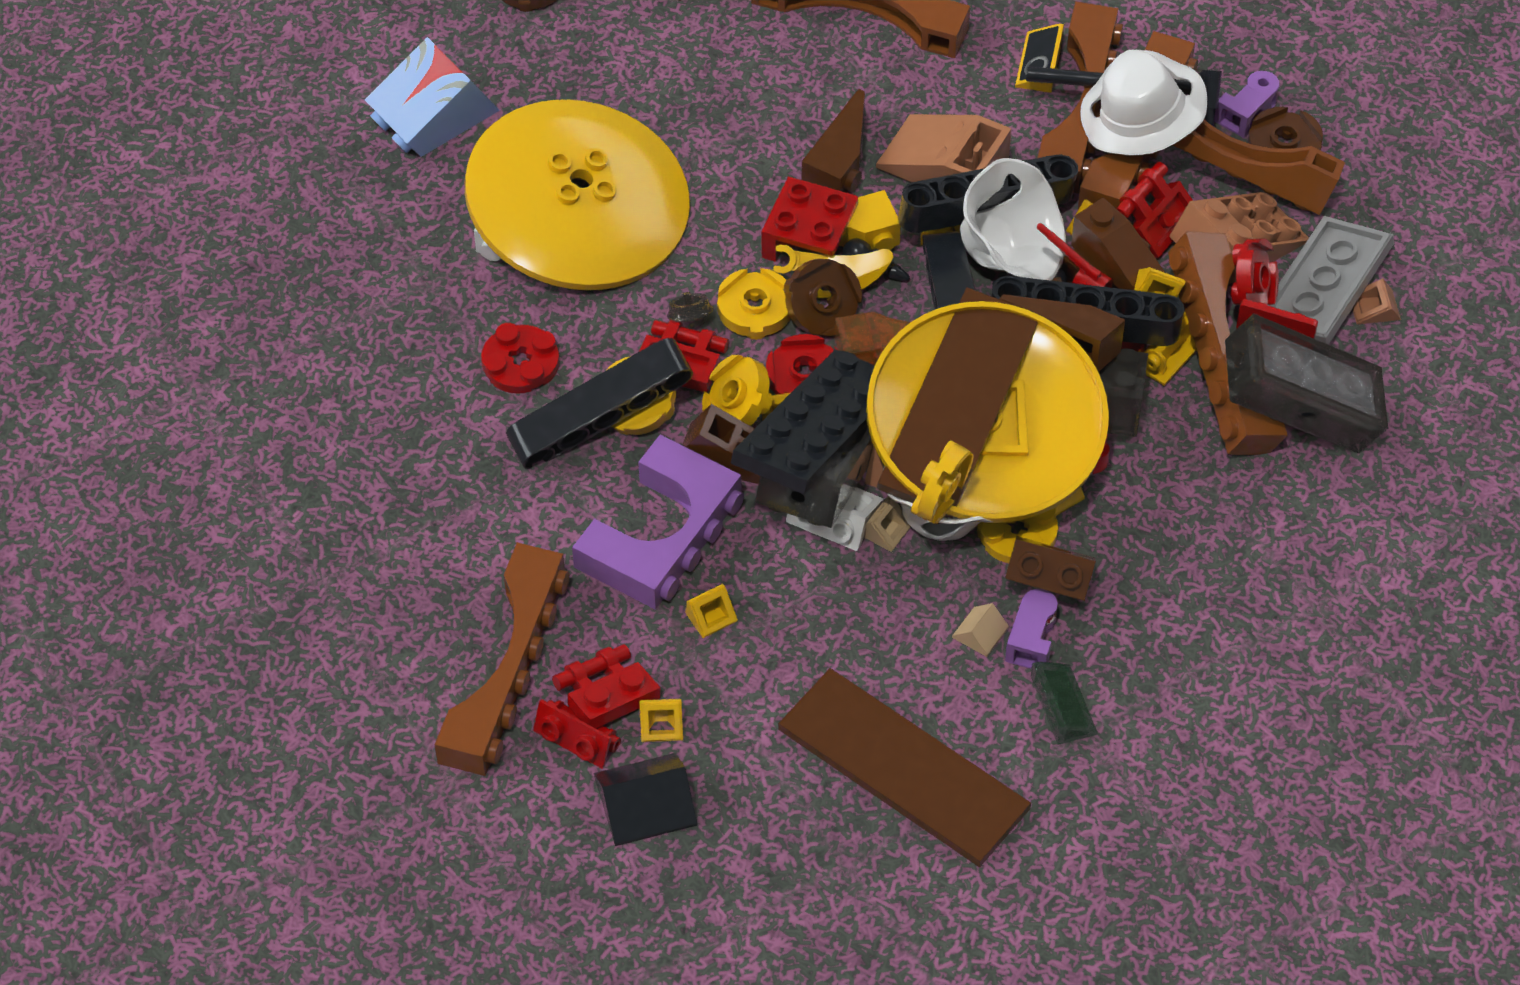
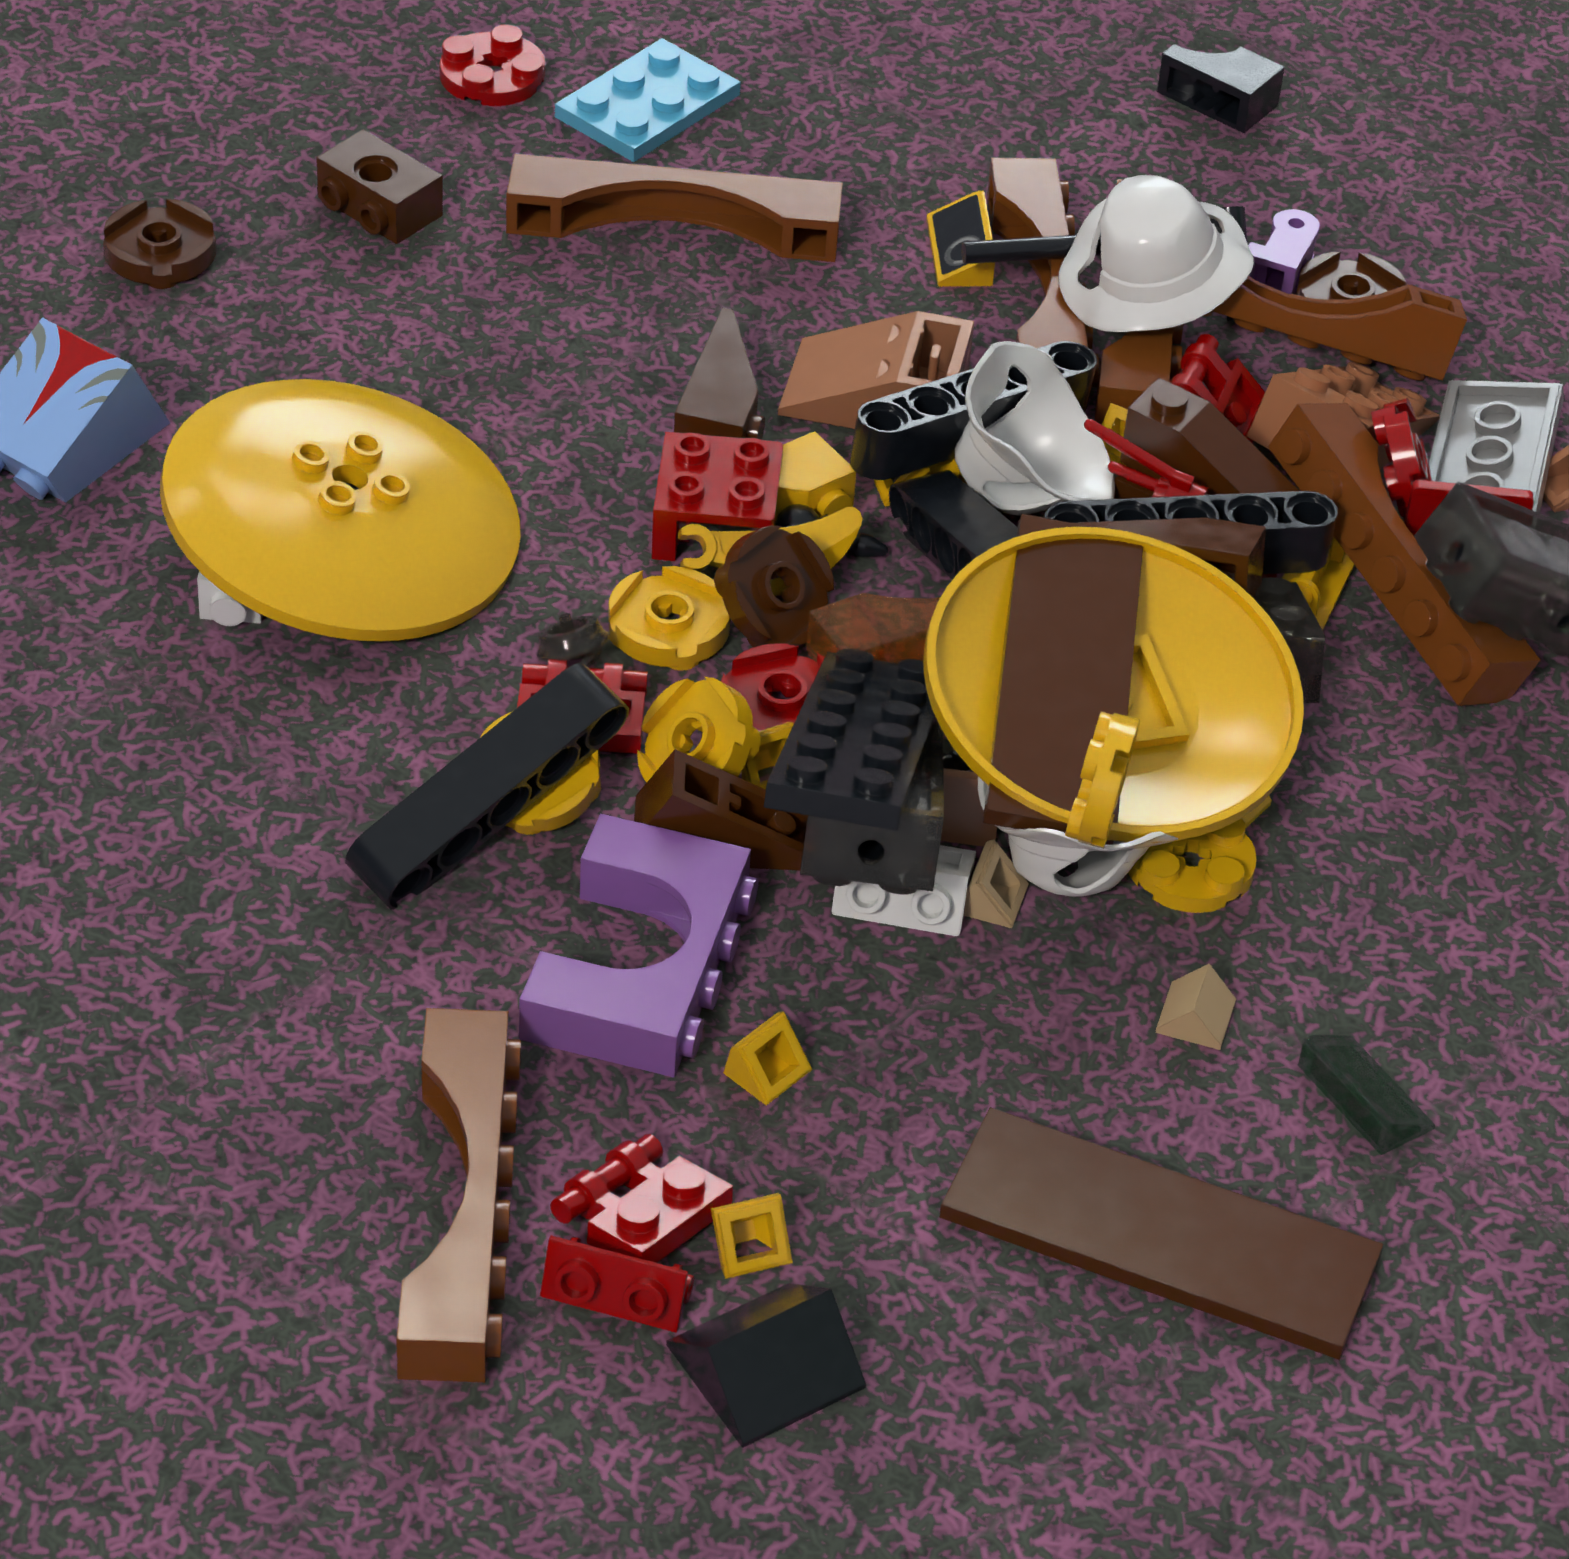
camera: 20 degrees left, 10 degrees down
(516, 339) = (304, 728): red plate -> none
(1032, 623) = (1275, 995): medium lavender leg -> none
(1050, 568) = (1276, 897): reddish brown brick -> none
(1158, 282) = (1280, 475): yellow slope -> none

